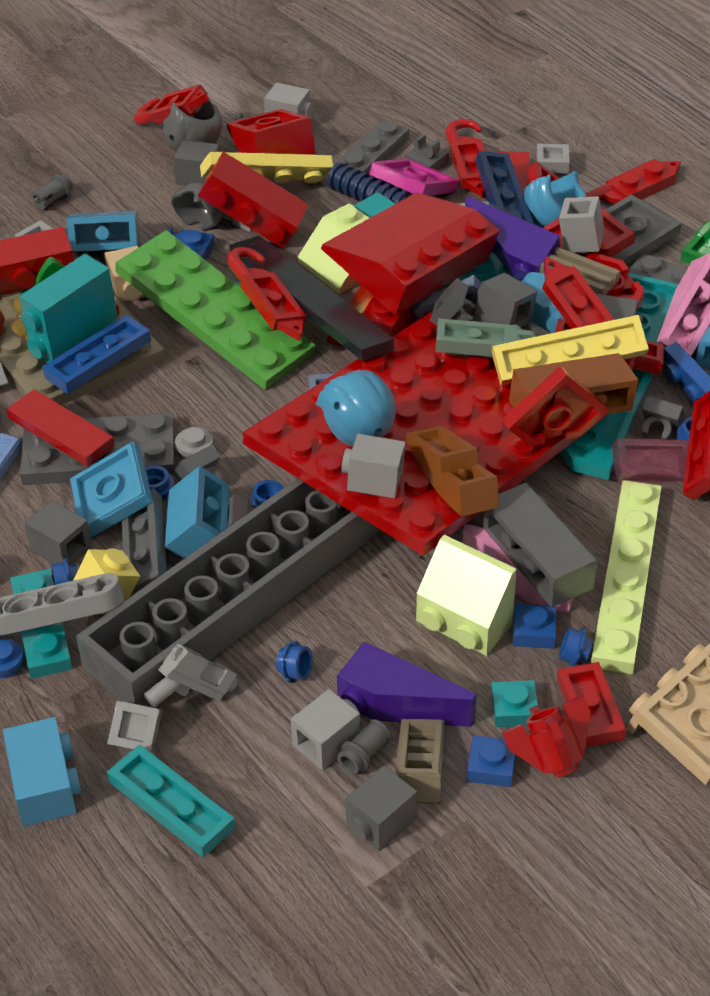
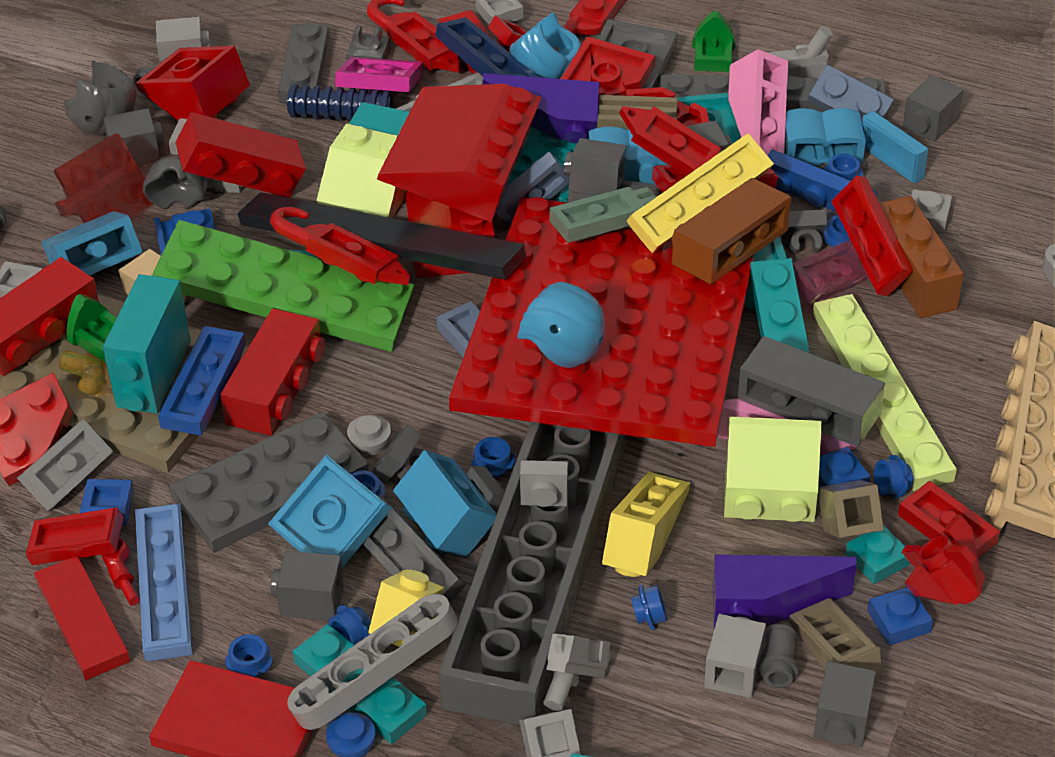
camera: 30 degrees left, 0 degrees up
(60, 427) = (224, 473): red tile -> none
(145, 186) = (101, 182): none -> clear red bracket
(158, 368) = (272, 372): none -> red brick
(187, 100) = (60, 83): red plate -> none
(258, 526) = (544, 483): none -> light grey plate
(278, 166) = (236, 109): light yellow plate -> none
(336, 595) = (643, 524): none -> light yellow slope
(374, 465) = (623, 375): light grey brick -> none
(453, 304) = (546, 189): dark grey tile -> none
(454, 470) = (694, 349): dark orange slope -> none
(508, 654) = (850, 508): none -> dark tan brick
(554, 409) = (743, 254): red plate -> none
(580, 477) = (778, 302): none -> teal plate
(581, 224) = (611, 63): light grey brick -> none

